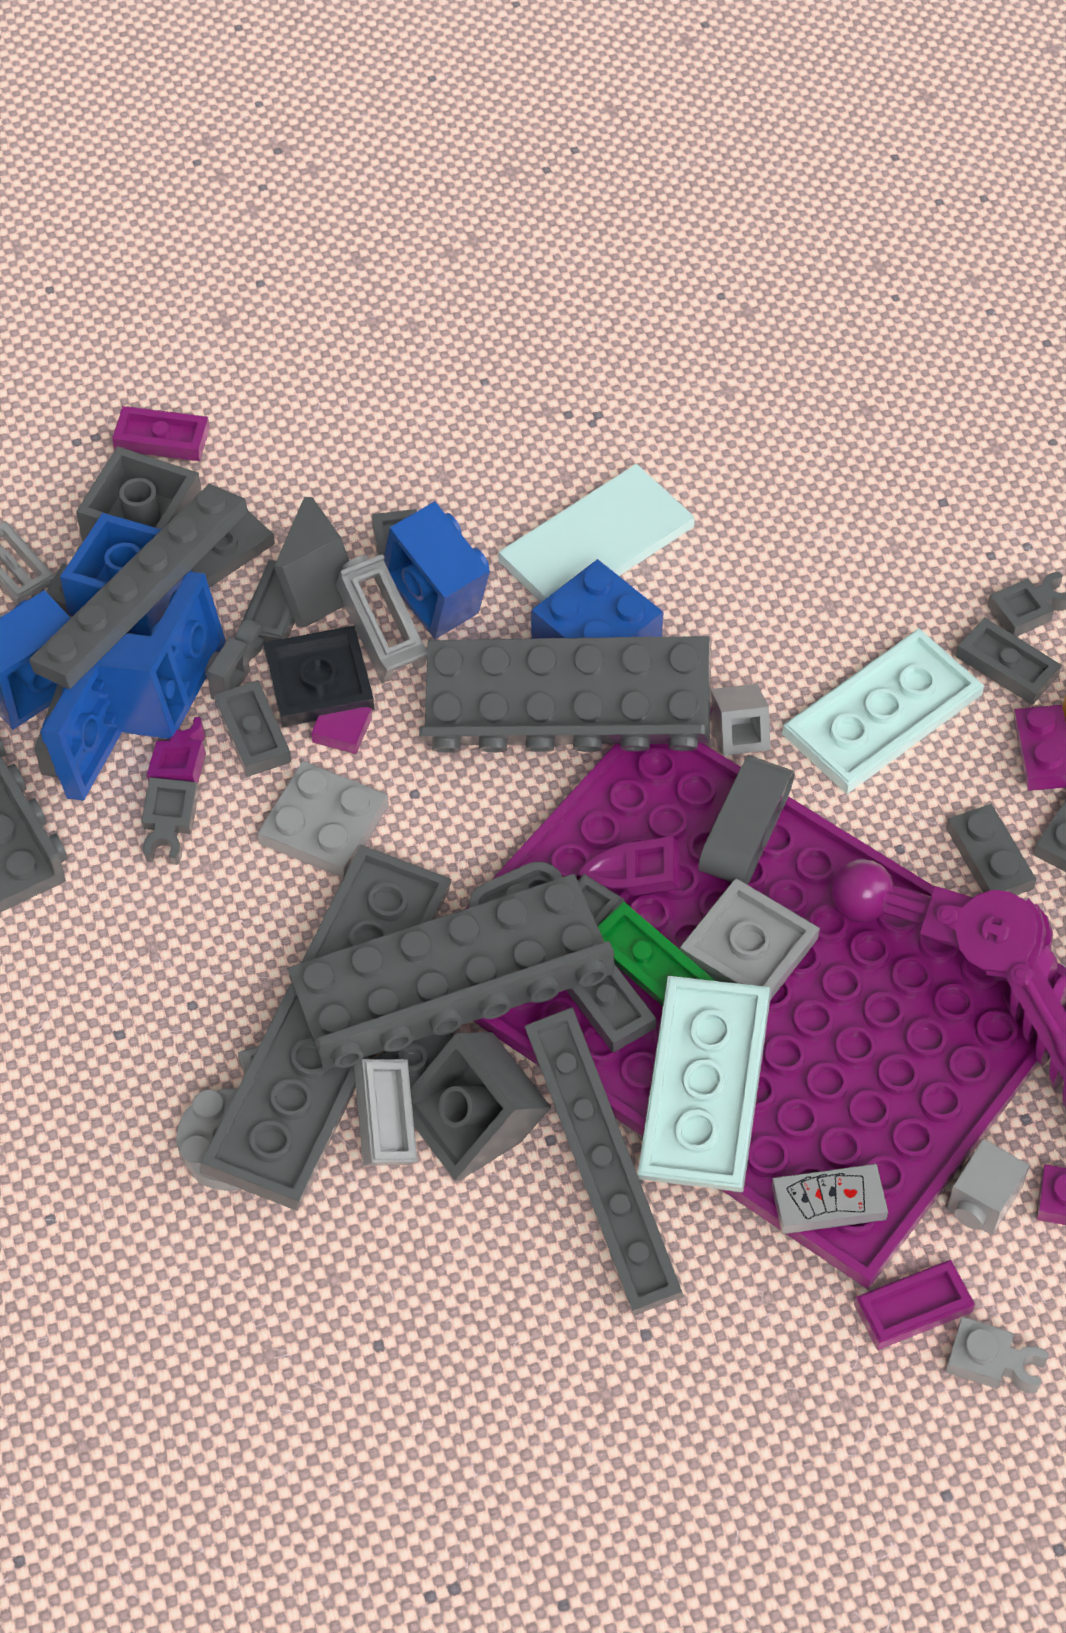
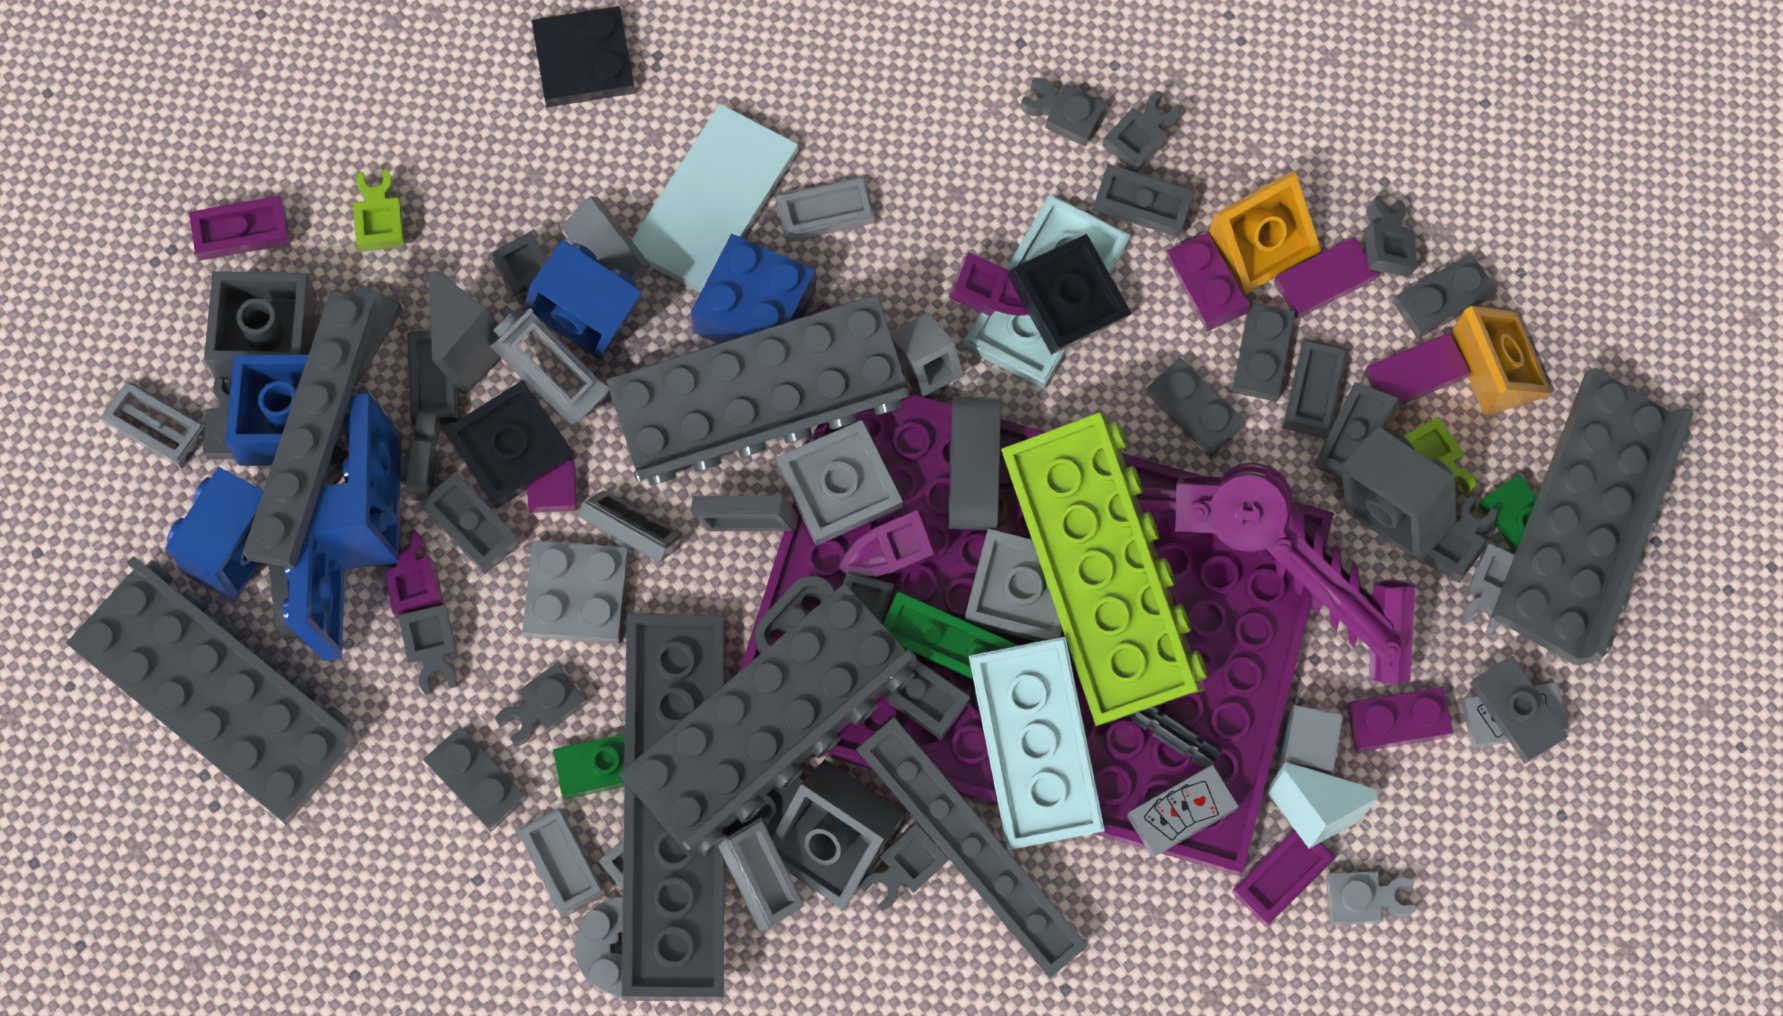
camera: 25 degrees left, 15 degrees up
(157, 945) = (475, 779): none -> dark grey plate
(202, 1043) = (561, 862): none -> light grey tile
(253, 901) = (547, 701): none -> dark grey plate
(263, 970) = (590, 766): none -> green plate
(287, 462) = (378, 218): none -> lime plate
(398, 777) = (630, 526): none -> dark grey plate
(482, 531) = (602, 234): none -> dark grey tile
(509, 795) = (744, 513): none -> dark grey tile
(528, 394) = (583, 56): none -> black plate
(538, 1156) = (910, 861): none -> dark grey plate
(609, 796) = (839, 482): none -> light grey plate
(698, 579) = (825, 209): none -> light grey tile
(826, 682) = (985, 287): none -> magenta plate
(834, 941) = (1104, 568): none -> lime bracket
(851, 1124) = (1178, 735): none -> black axle
(901, 710) = (1069, 294): none -> black plate
(964, 571) = (1069, 113): none -> dark grey plate
(977, 1243) = (1319, 802): none -> light aqua slope

